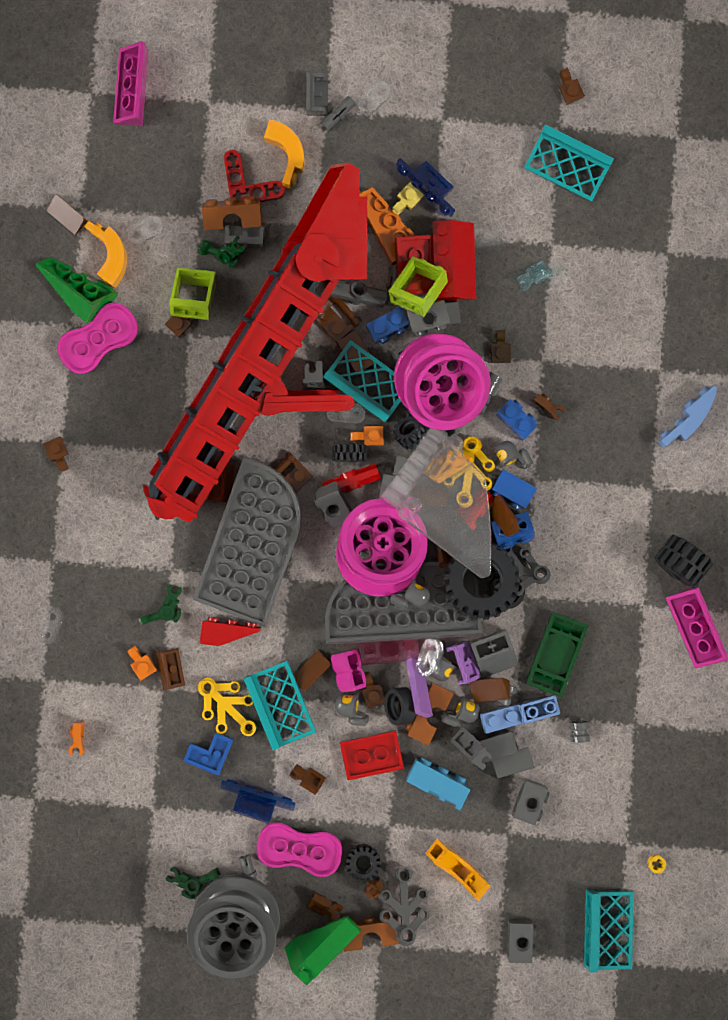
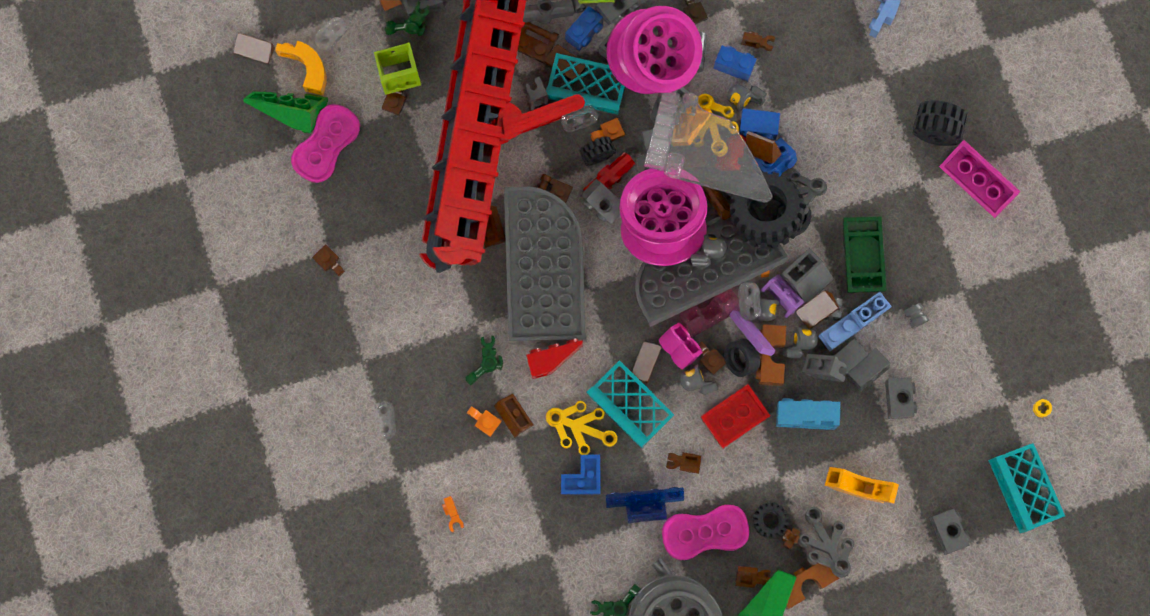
camera: 20 degrees left, 10 degrees down
(403, 435) = (644, 109): black tyre -> none

